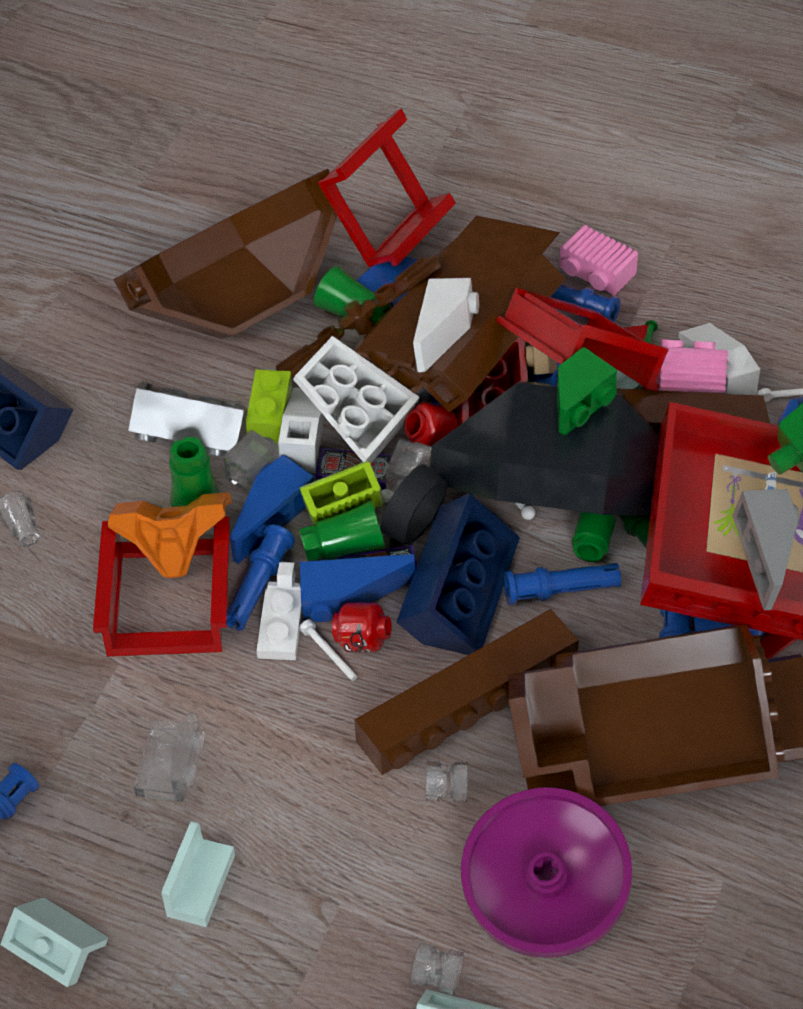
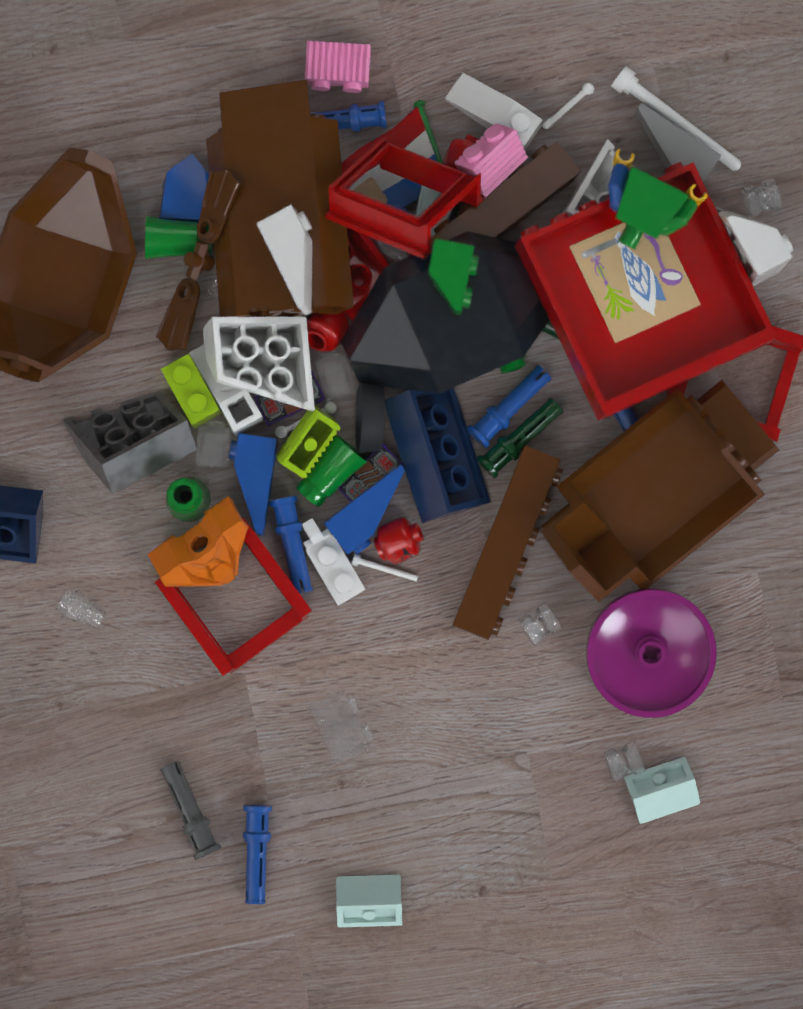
camera: 35 degrees left, 35 degrees up
(196, 877) = (429, 799): light aqua panel -> none
(418, 221) = (165, 123): red piece -> none
(513, 615) = (506, 451): none -> dark green pin
(766, 530) = (662, 319): light grey slope -> none

